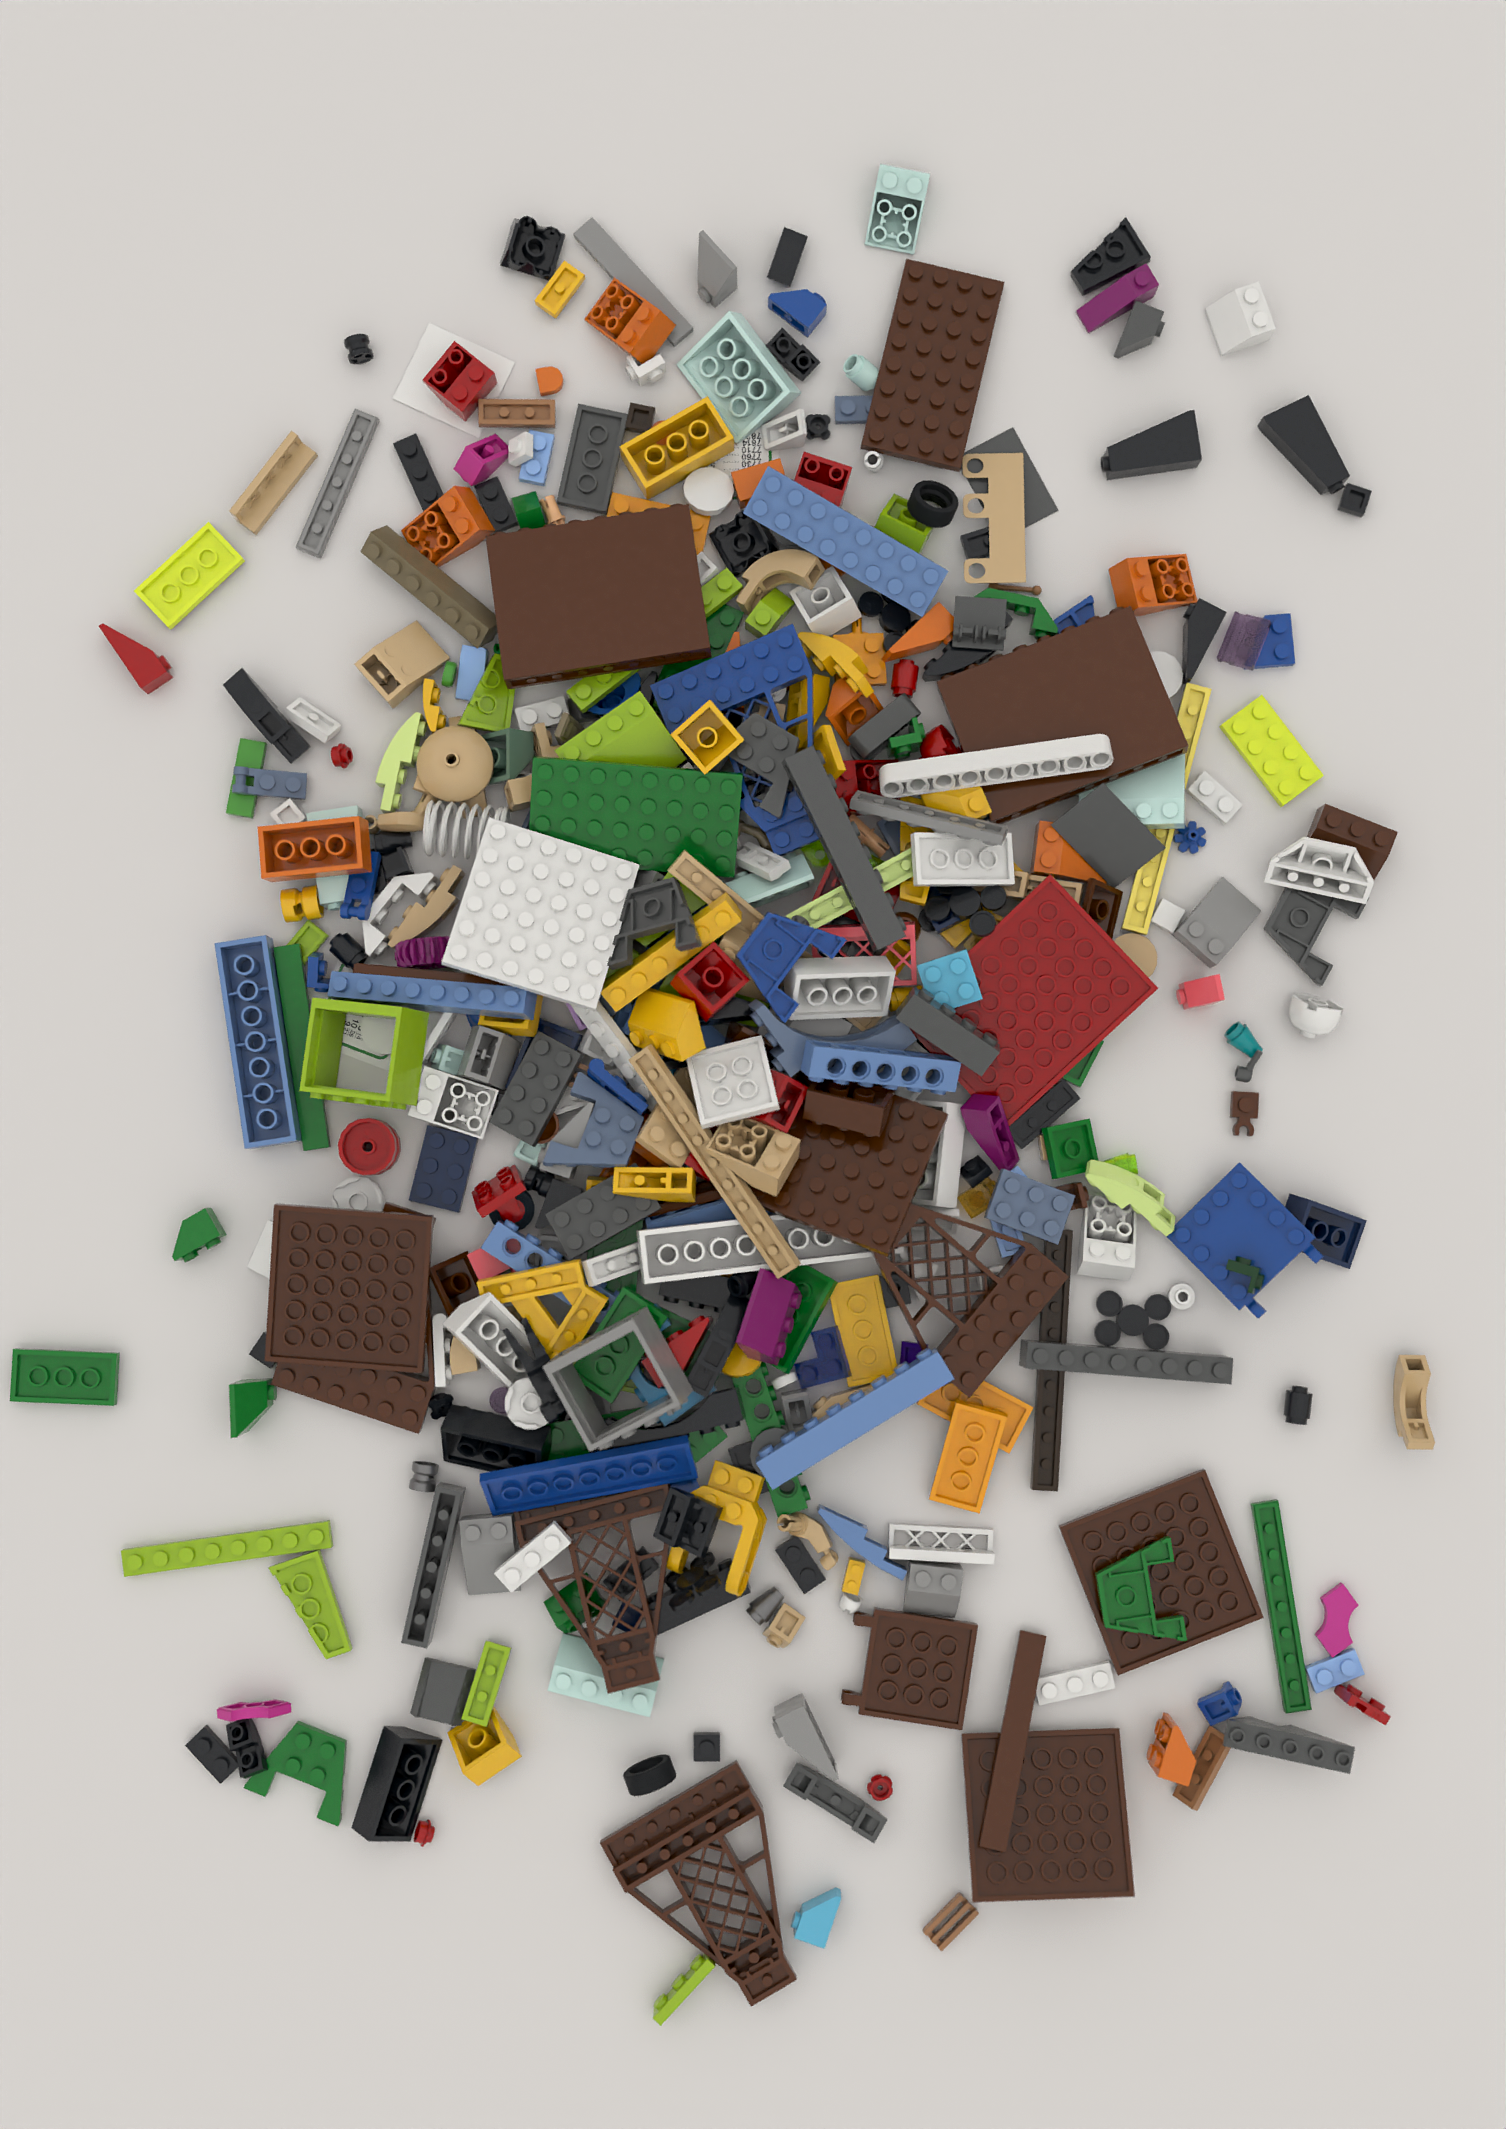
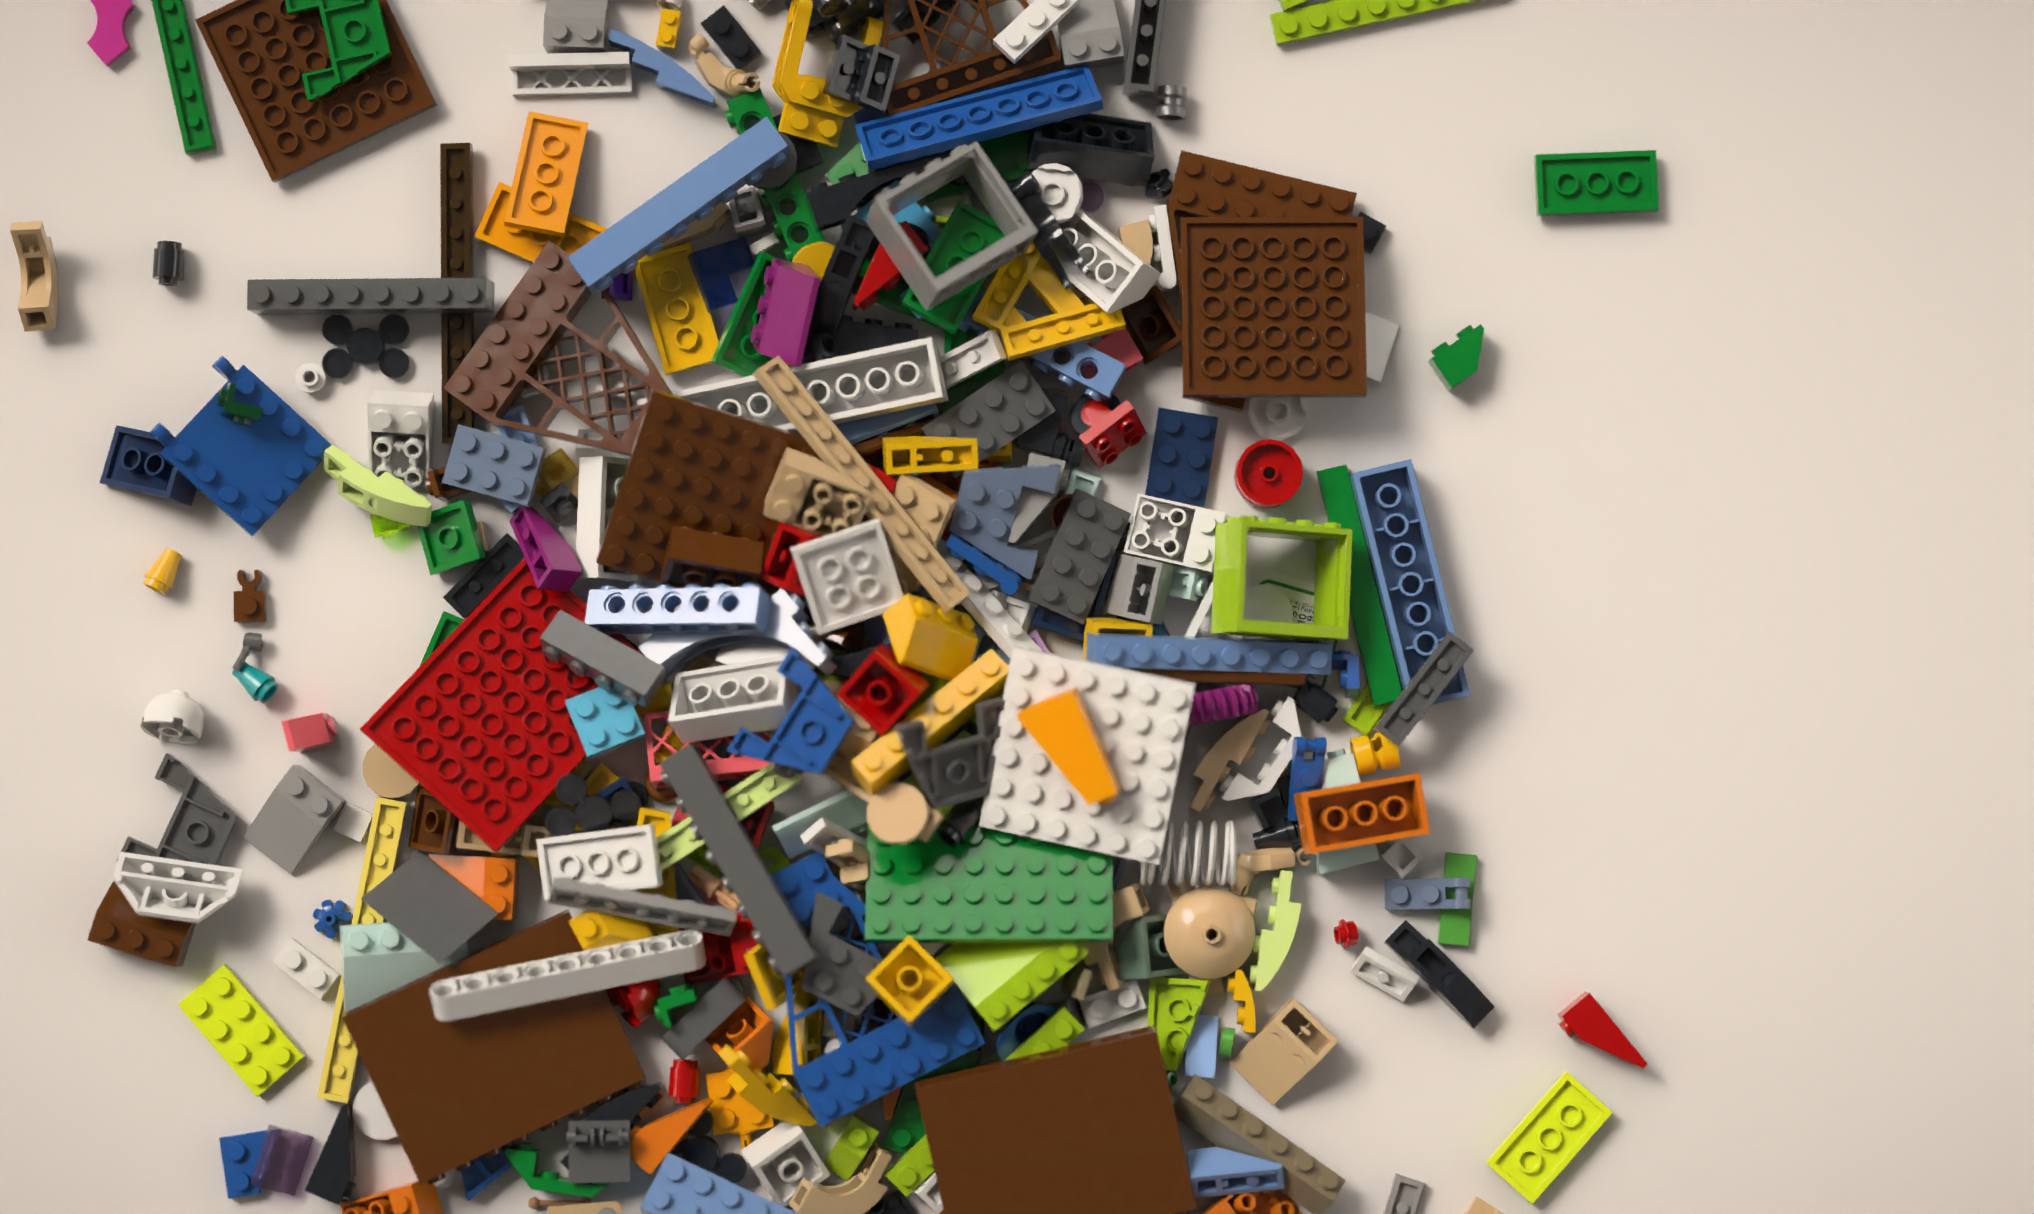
camera: 170 degrees right, 0 degrees up
(249, 1402) = (1378, 170): green slope -> none
(252, 950) = (1423, 689): none -> dark grey plate
(456, 565) = (1228, 1172): none -> medium blue slope
(552, 923) = (1071, 741): none -> light orange slope
(655, 866) = (958, 826): none -> black cone
(705, 874) = (897, 813): none -> tan tile
(748, 844) = (852, 859): none -> tan bracket
(902, 1286) = (637, 362): black brick -> none
(1316, 1139) = (163, 571): none -> yellow cone

